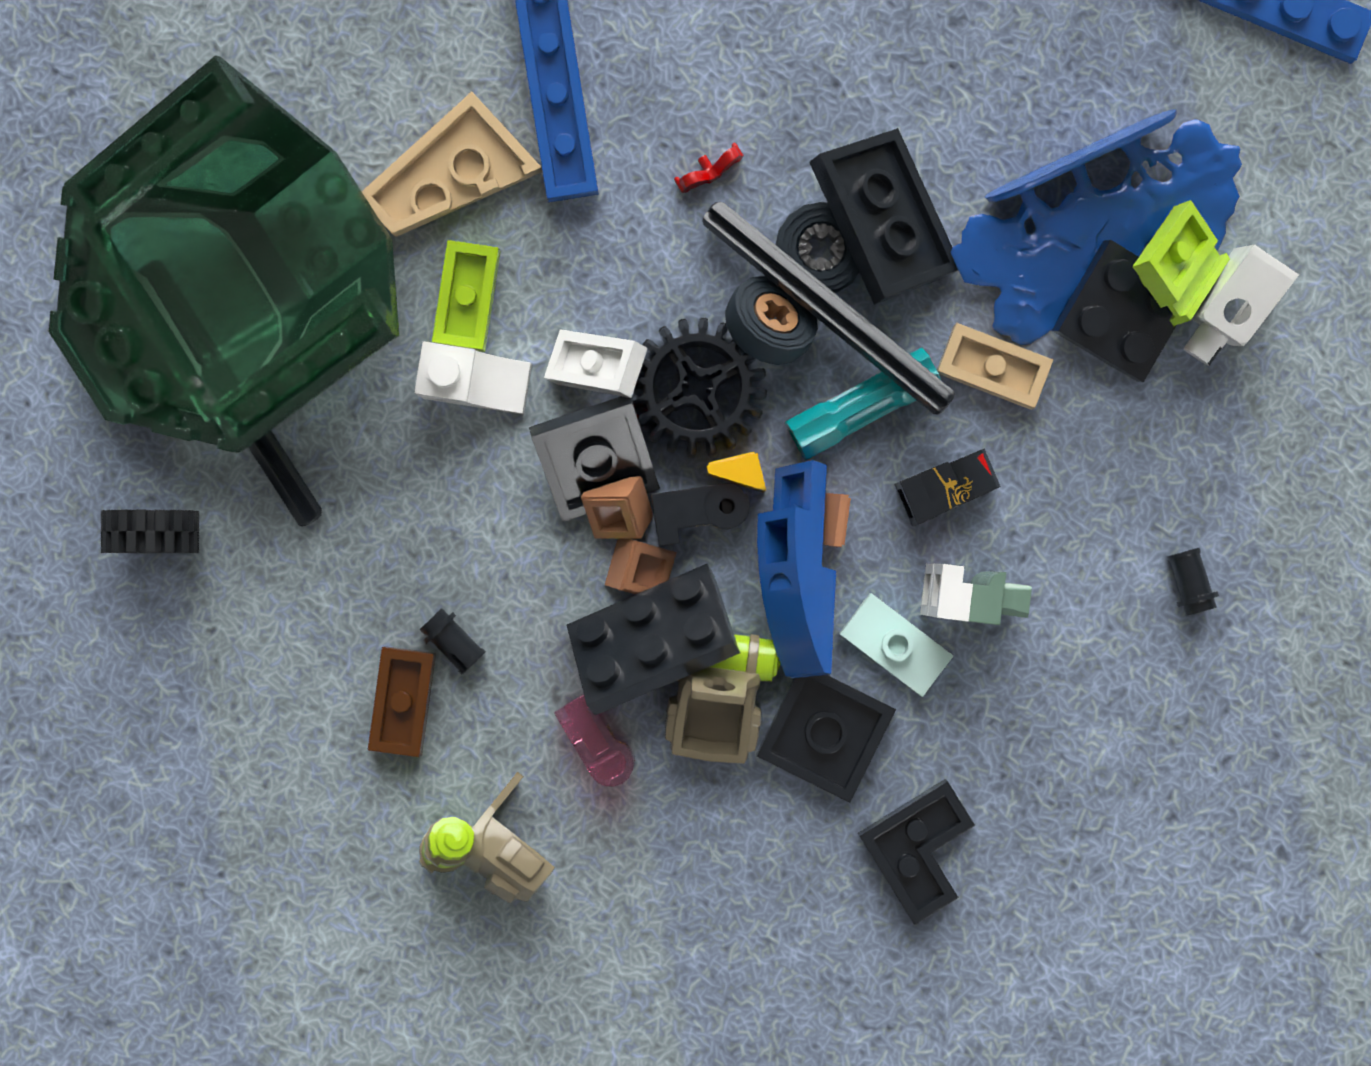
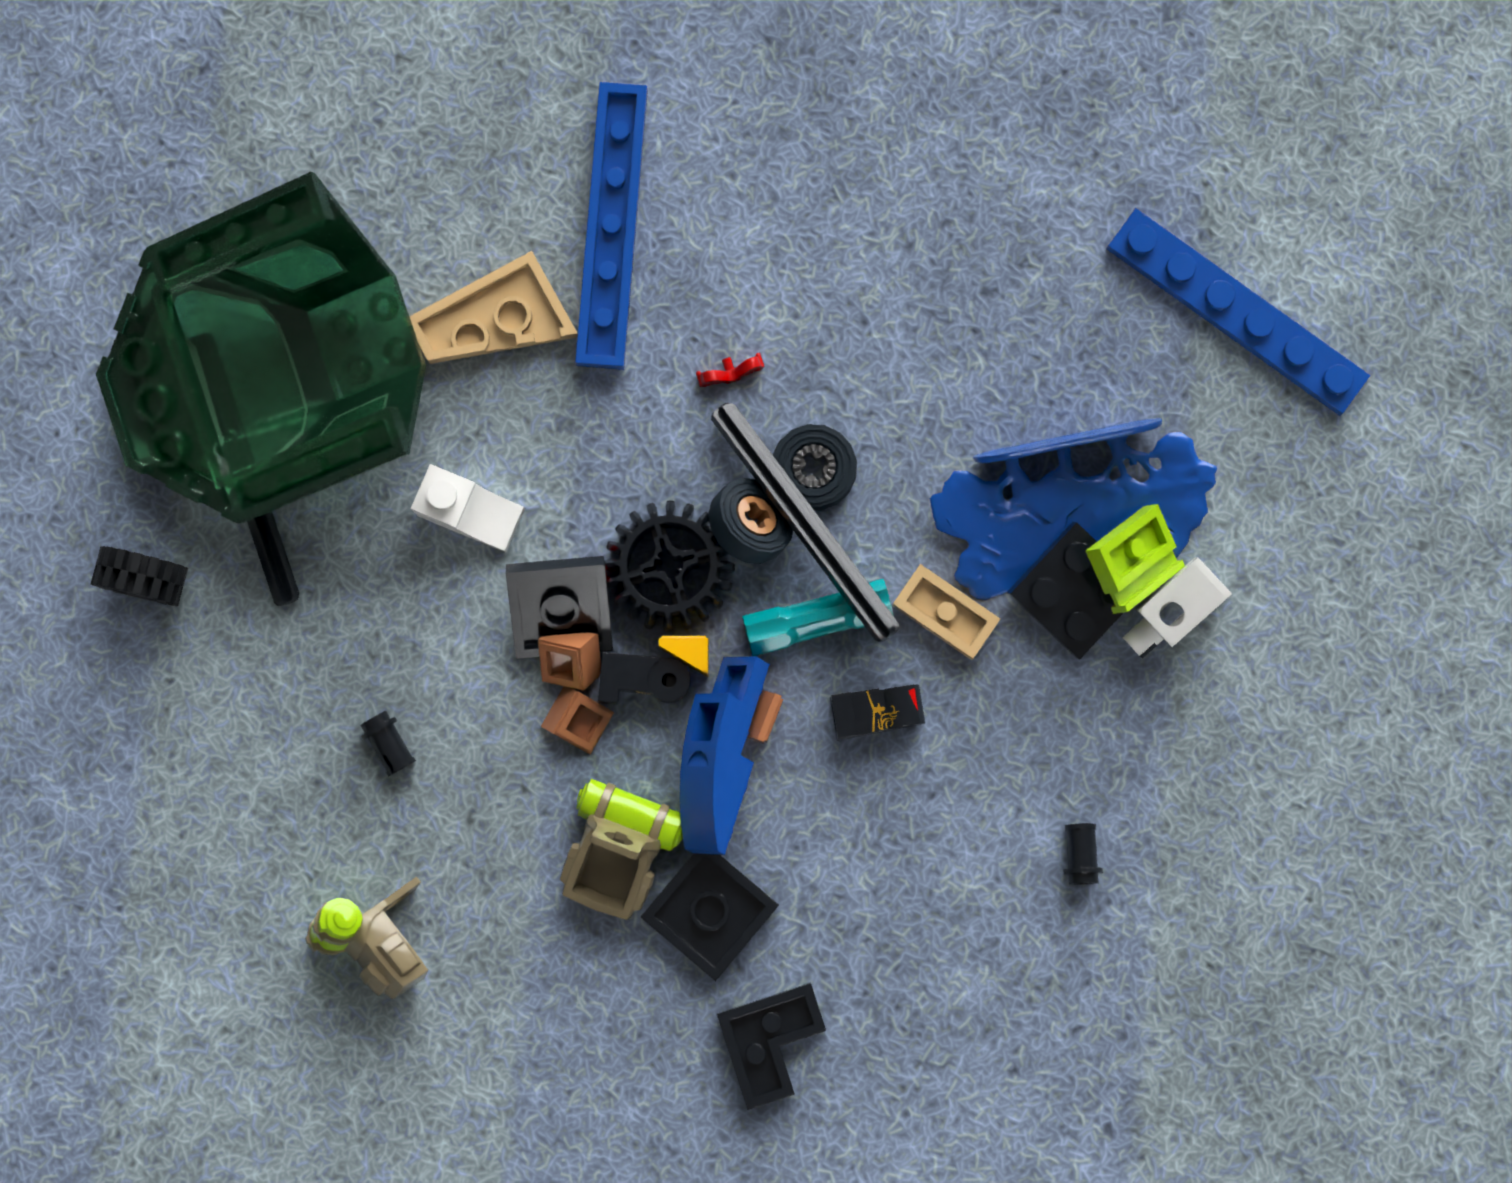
camera: 10 degrees right, 5 degrees down
(401, 701) = (327, 787): reddish brown plate -> none
(466, 295) = (480, 432): lime plate -> none
(596, 363) = (581, 521): white plate -> none
(603, 754) = (499, 880): clear pink leg -> none
(651, 639) = (569, 784): black plate -> none
(885, 215) = (877, 451): black plate -> none
(896, 644) = (795, 846): light aqua plate -> none
(978, 602) = (870, 820): hips -> none

